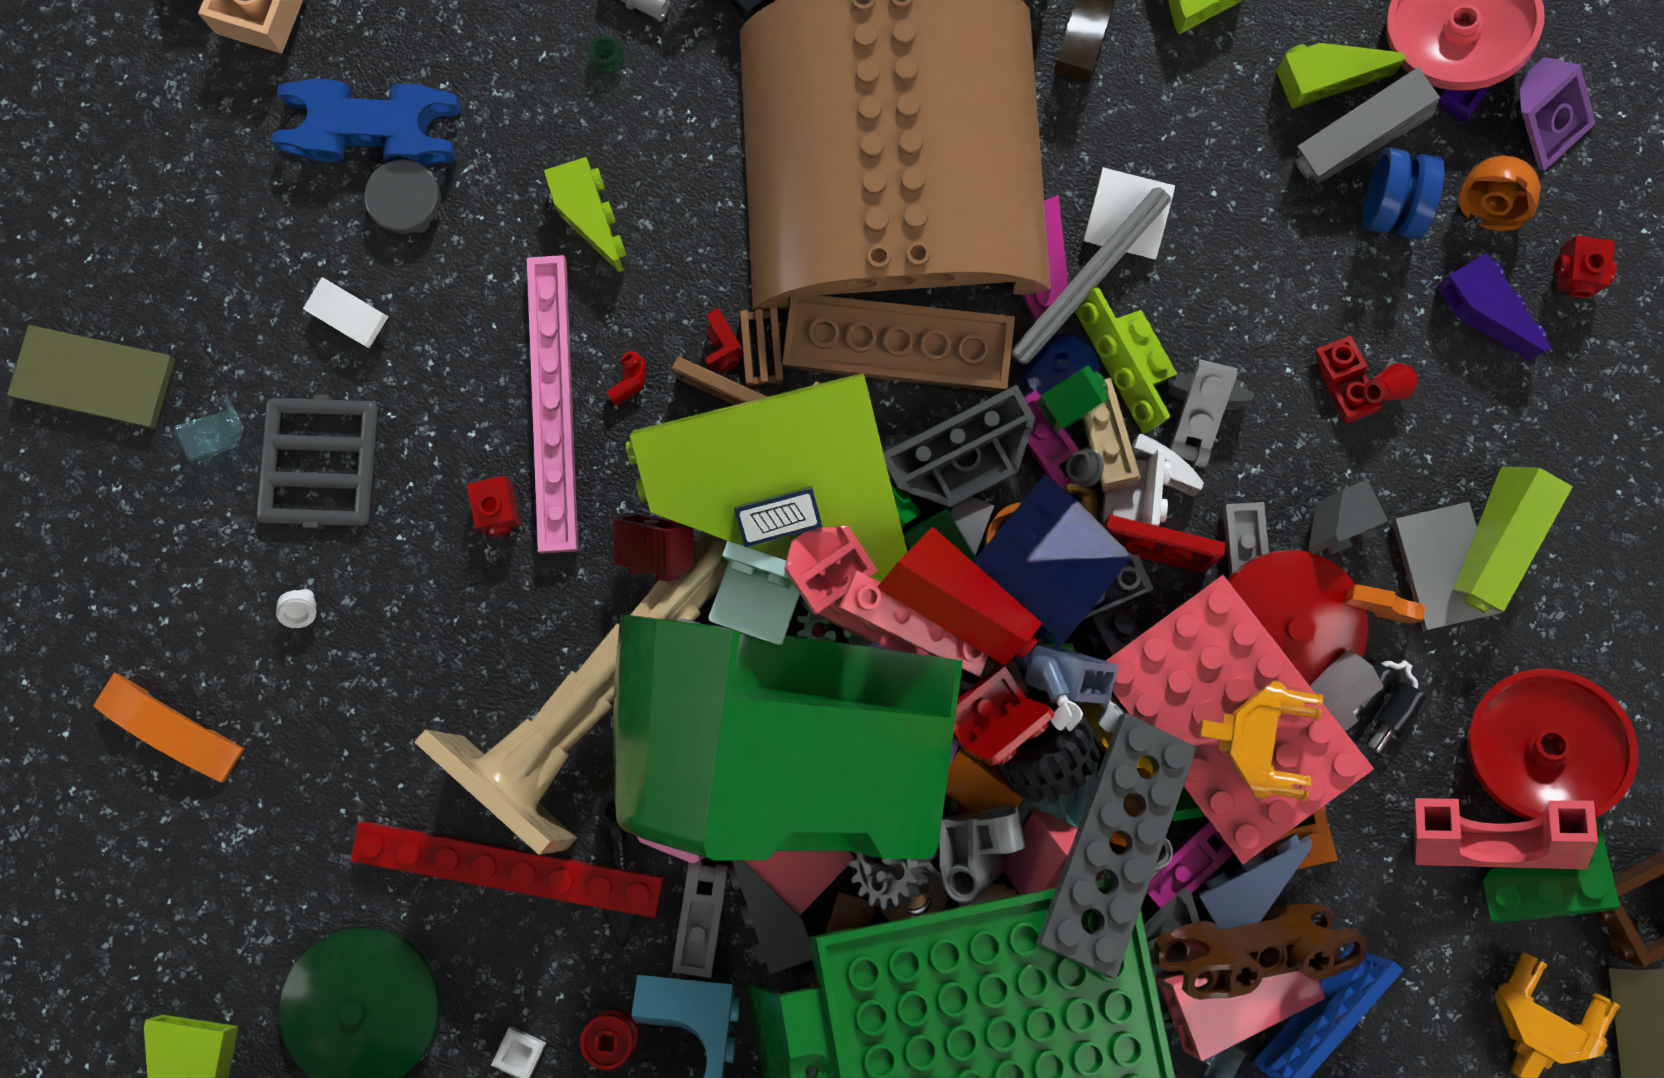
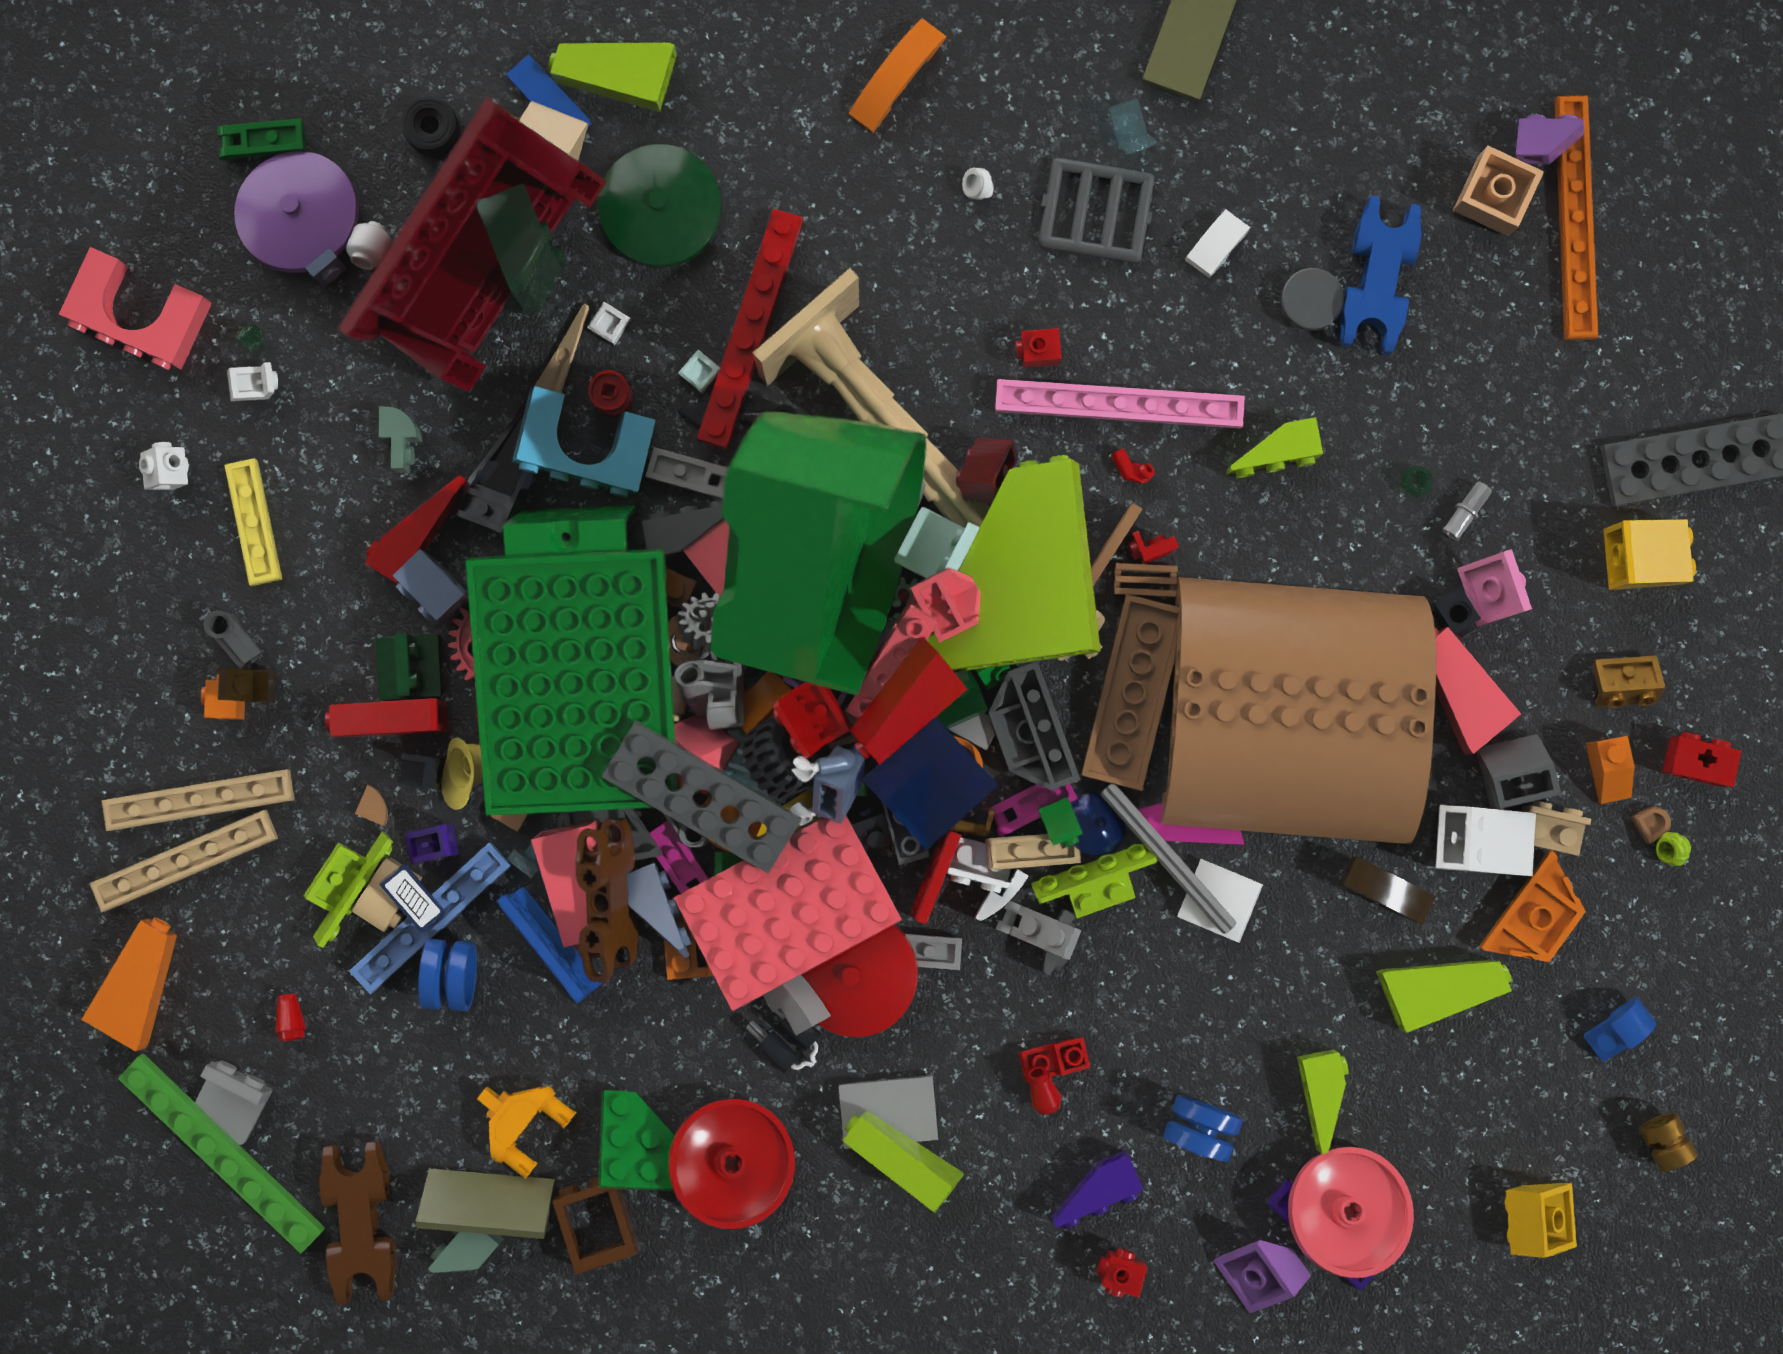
camera: 90 degrees right, 5 degrees up
(568, 926) = (699, 371): none -> light aqua tile
(778, 516) = (991, 569): tile -> none
(1085, 467) = (1006, 826): dark grey plate -> none
(1251, 734) = (770, 915): light orange connector -> none
(1345, 516) = (938, 1032): dark grey slope -> none
(1368, 127) = (1266, 1111): light grey slope -> none
(1384, 604) = (862, 1050): orange tile -> none
(1501, 193) = (1197, 1215): orange cylinder -> none
(1556, 840) = (658, 1141): coral arch -> none

